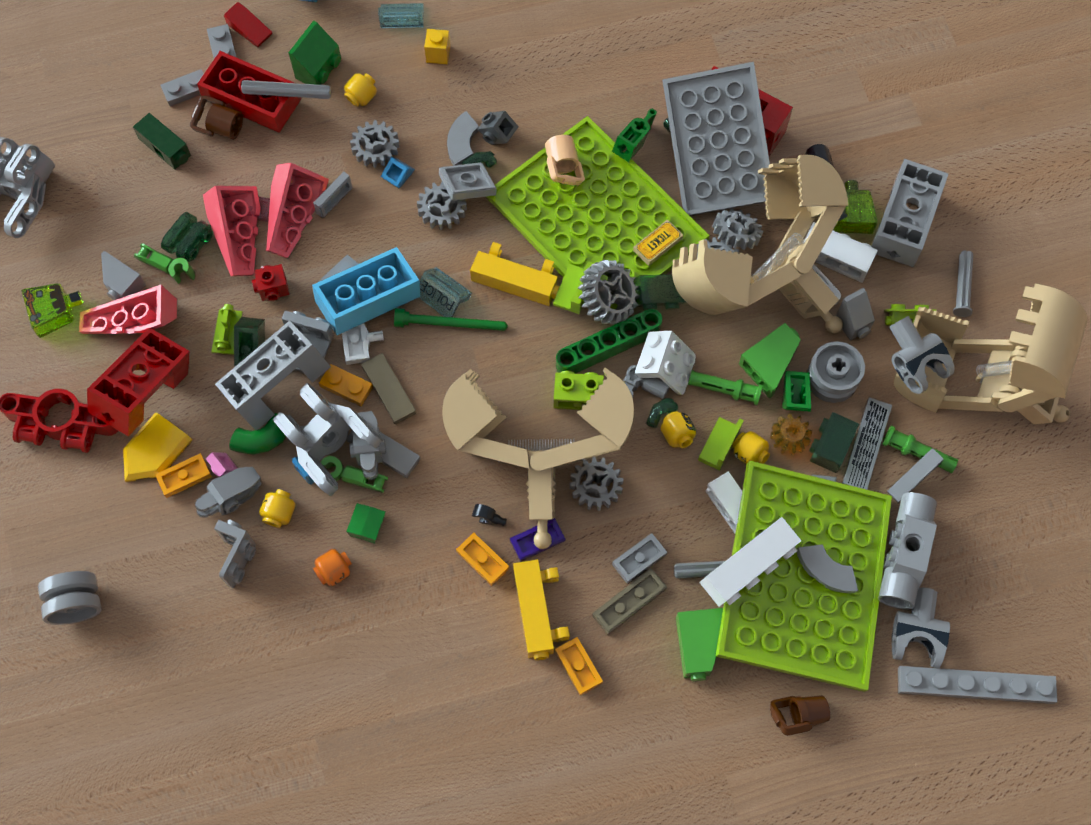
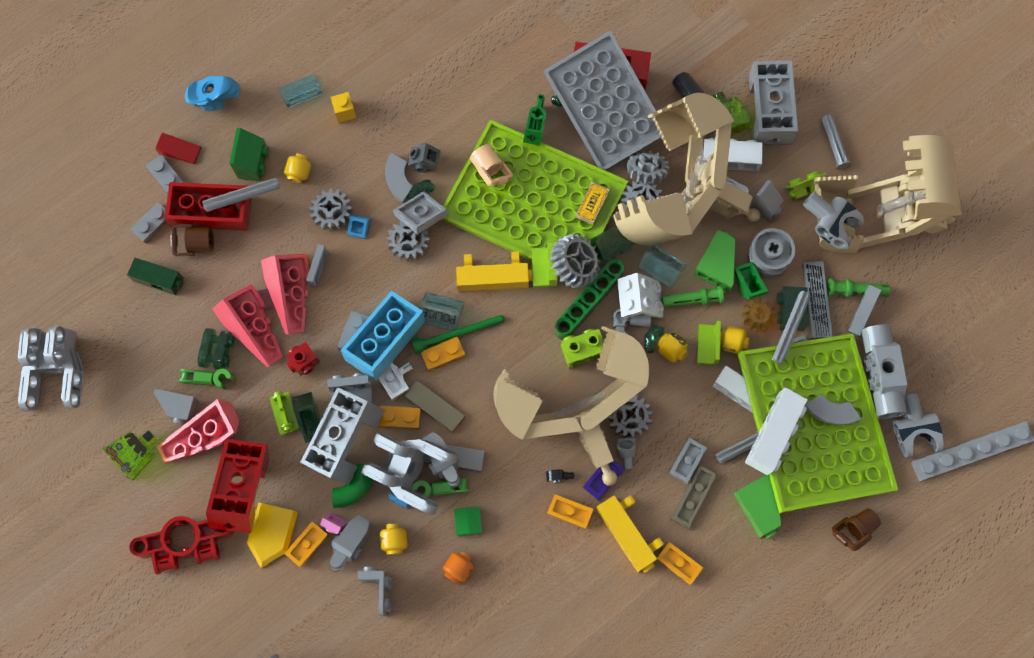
camera: 20 degrees left, 5 degrees up
(423, 337) = (443, 353): none -> light orange plate
(576, 519) = (626, 450): none -> light grey piece
(706, 338) = (661, 265): none -> clear light blue panel
(820, 458) = (791, 327): none -> light grey axle

